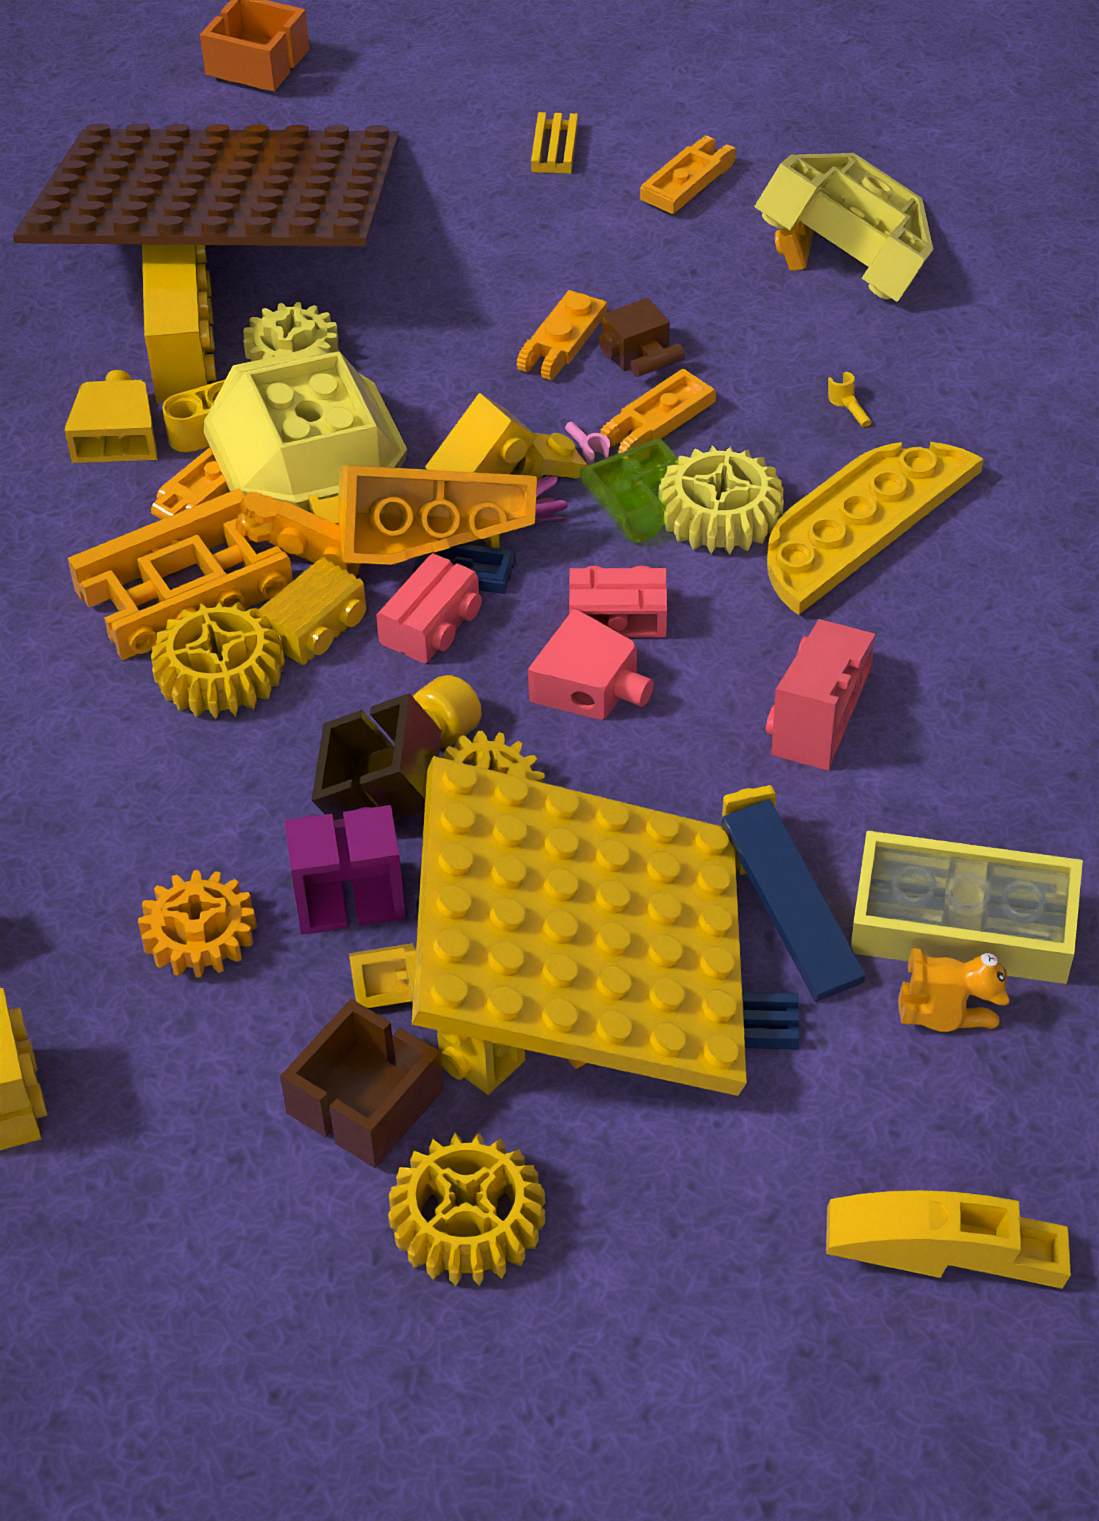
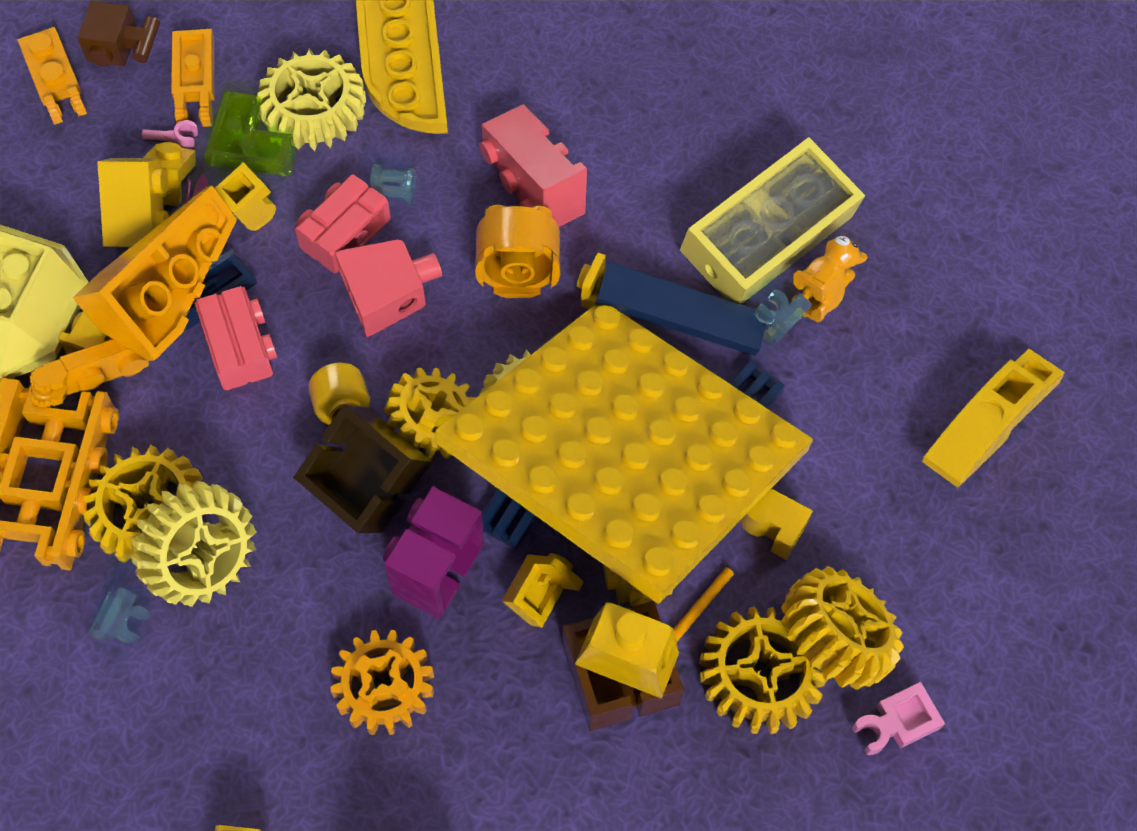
camera: 55 degrees left, 15 degrees up
(99, 706) = (113, 617): none -> clear light blue tile
(184, 692) = (180, 536): none -> light yellow gear
(315, 609) = (162, 409): yellow brick -> none
(357, 1028) = (630, 649): none -> yellow torso
(489, 1122) = (702, 603): none -> light orange piece
(524, 1369) = (904, 716): none -> bright pink plate
(565, 520) = (247, 197): none -> yellow leg
(578, 1266) = (842, 628): none -> yellow gear
(640, 1122) = (779, 520): none -> yellow leg
(697, 609) = (407, 179): none -> clear light blue bush
(714, 732) = (517, 250): none -> light orange brick
(871, 990) = (784, 318): none -> clear light blue tile

